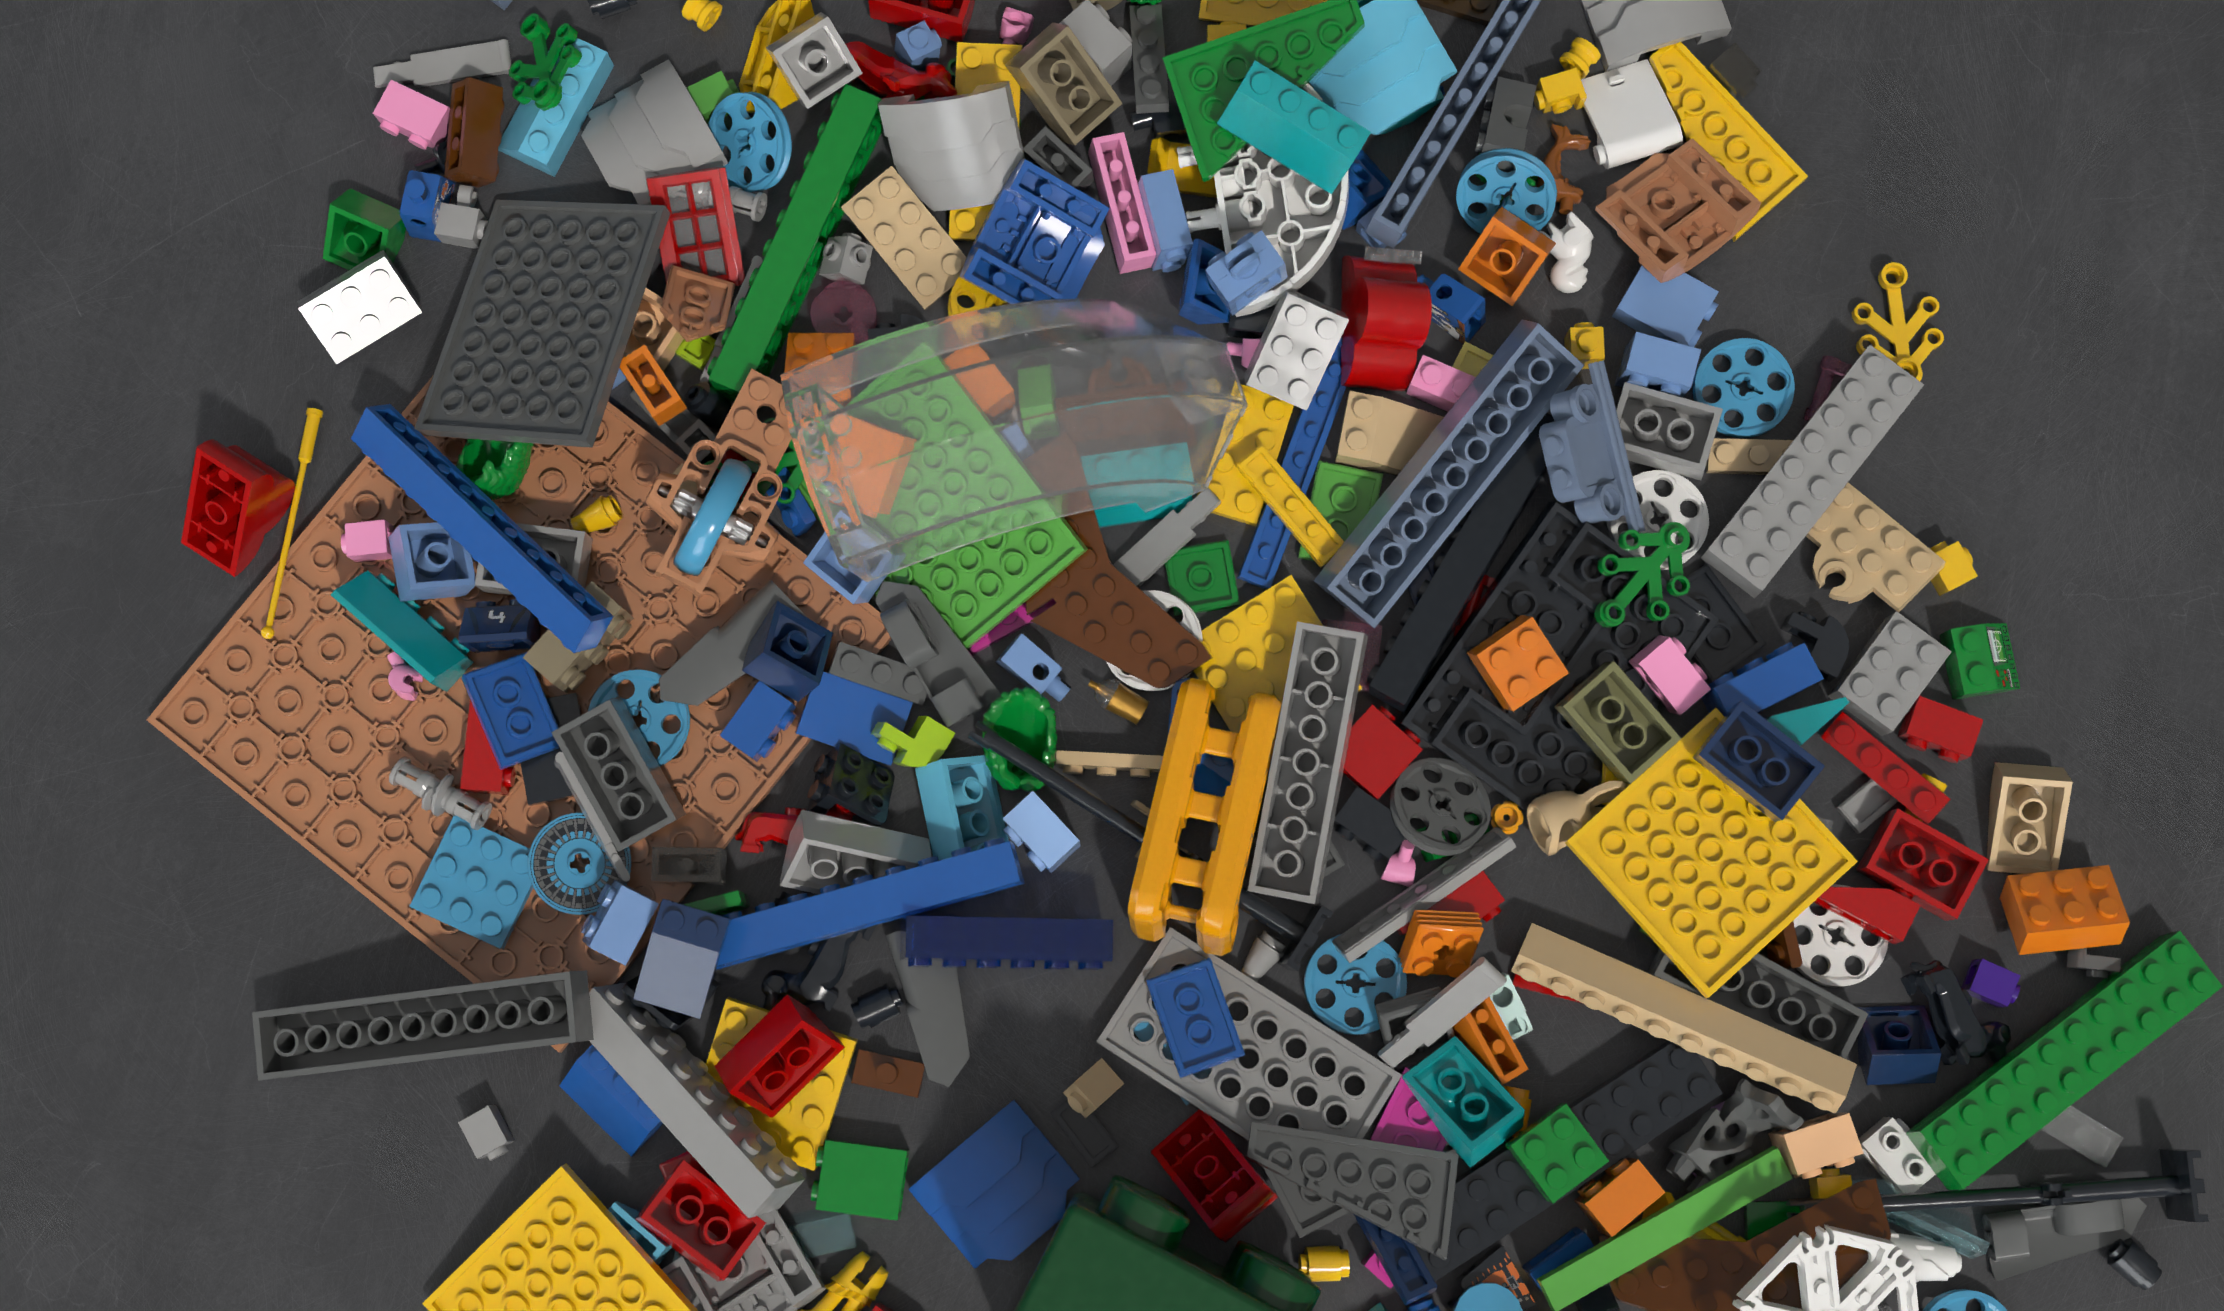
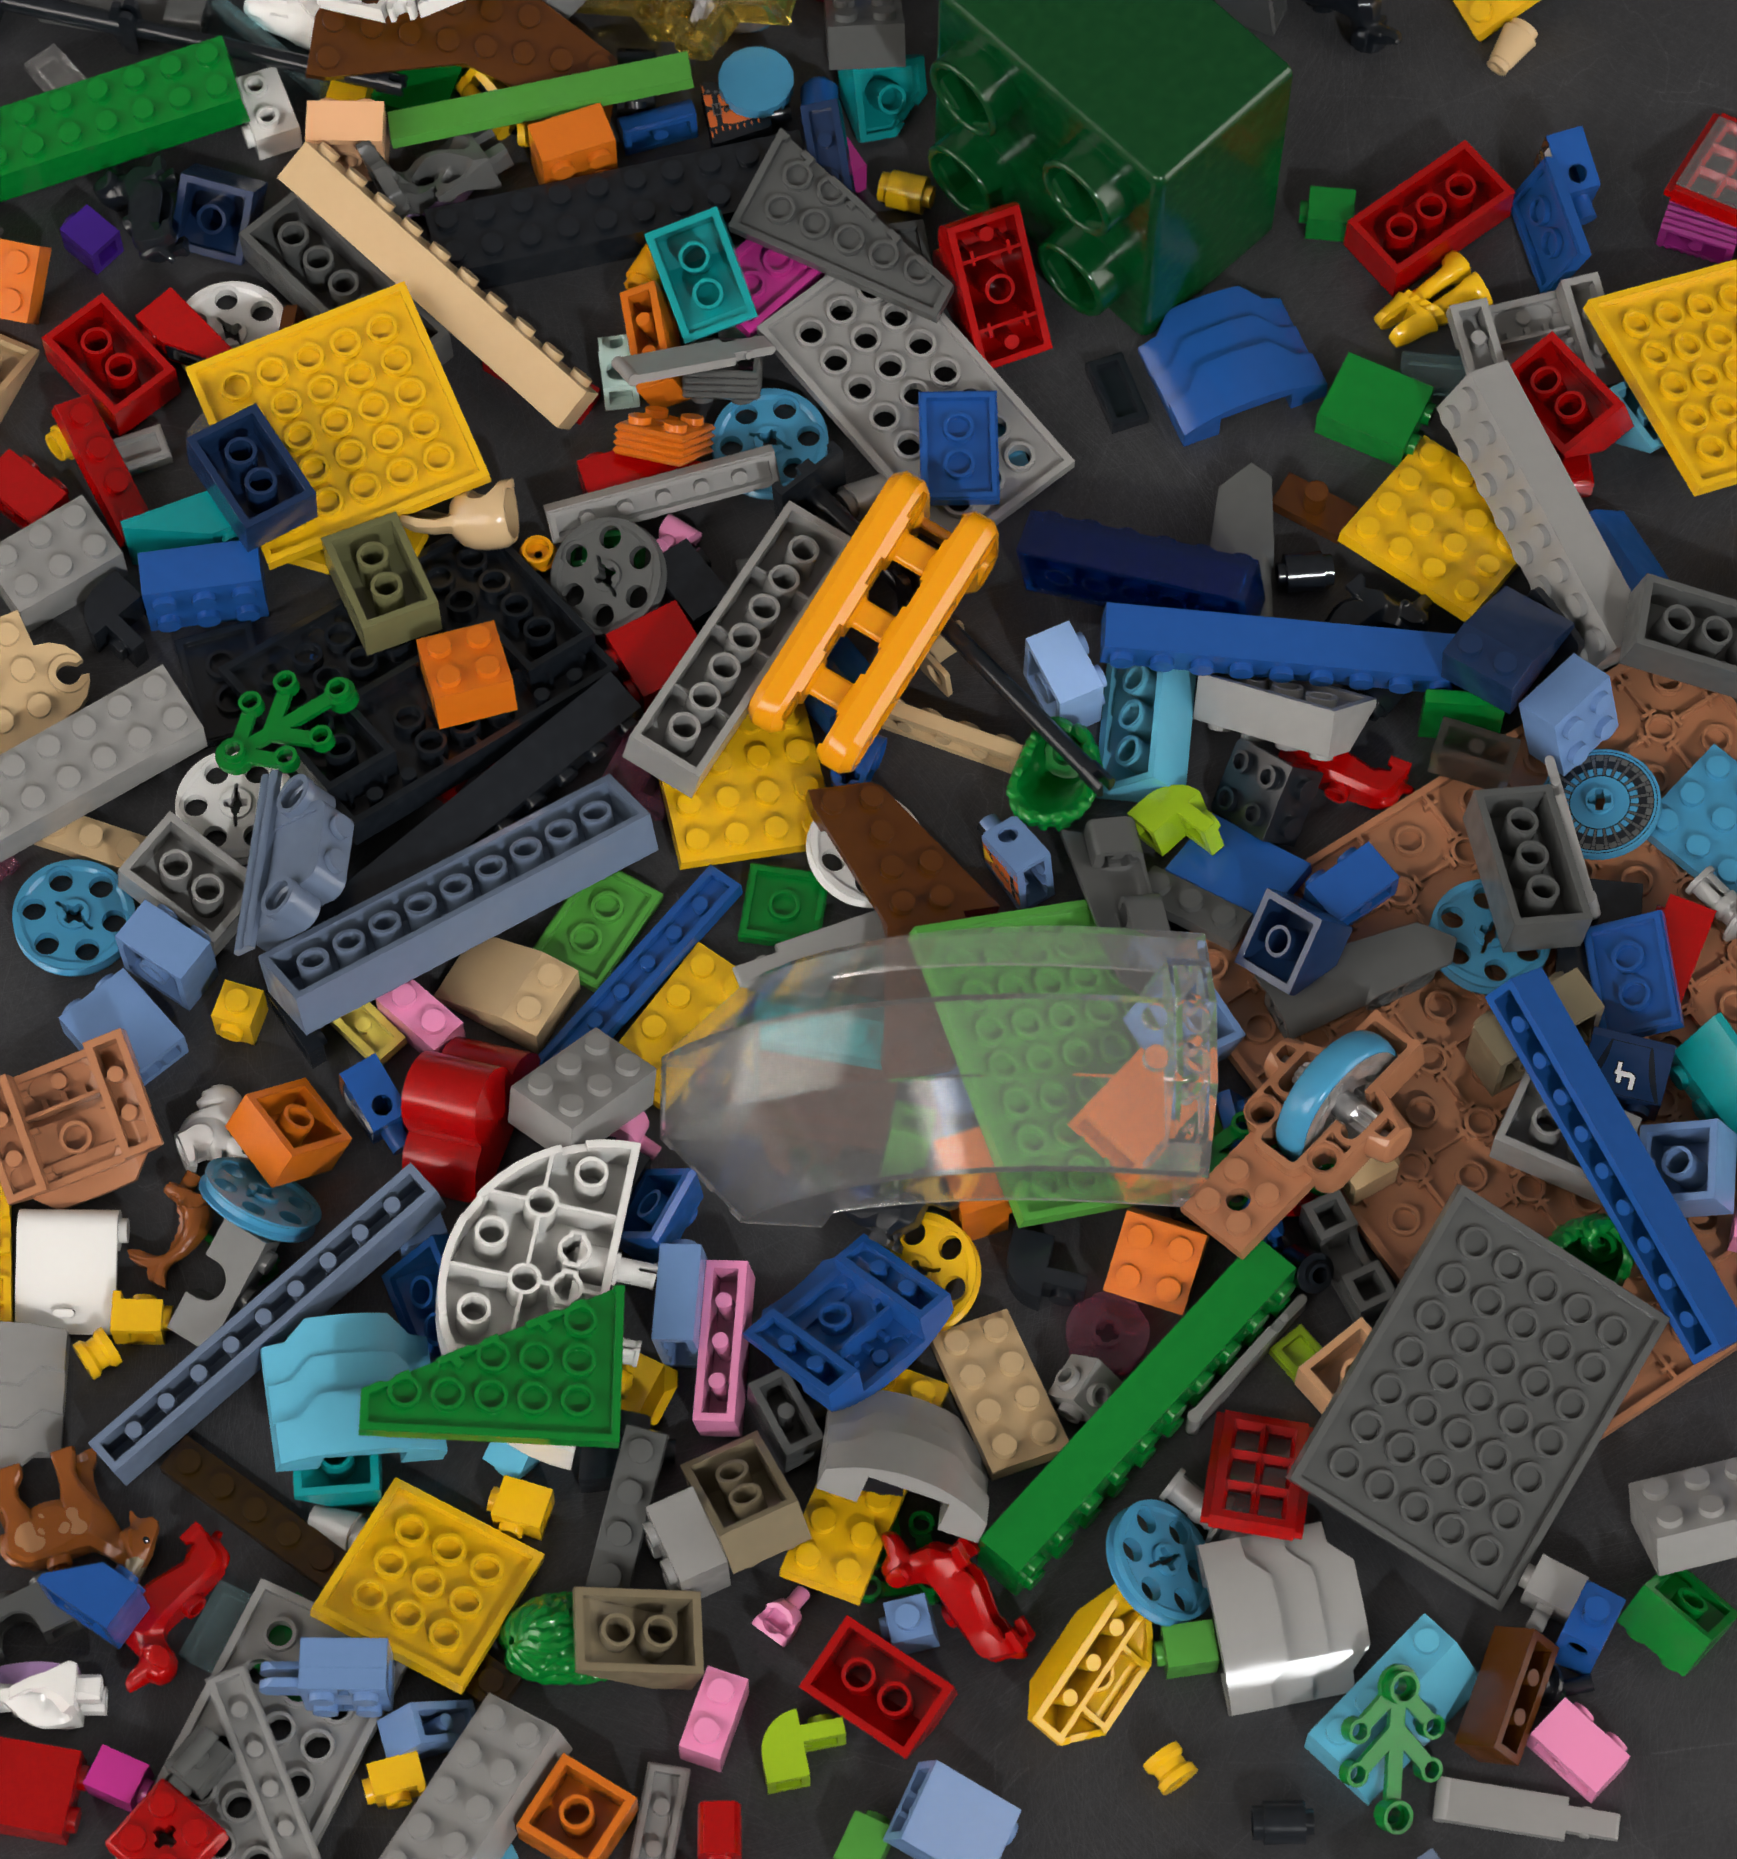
camera: 165 degrees left, 15 degrees down
(599, 515) = (1476, 1173): yellow cone -> none
(652, 385) = (1364, 1273): orange brick -> none
(696, 303) = (1284, 1376): nougat tile -> none
(778, 1057) = (1431, 533): red slope -> none
(814, 60) = (1048, 1610): light grey brick -> none
(1093, 1088) = (1094, 418): tan brick -> none
(1119, 699) = (925, 800): pearl gold piece -> none
(1246, 271) = (614, 1152): medium blue brick -> none
(1290, 505) = (652, 940): yellow tile -> none
(1293, 127) = (492, 1296): teal slope -> none
(1392, 255) = (441, 1160): clear tile -> none
(1557, 1152) = (625, 192): green brick -> none
(1670, 674) = (300, 621): bright pink brick -> none

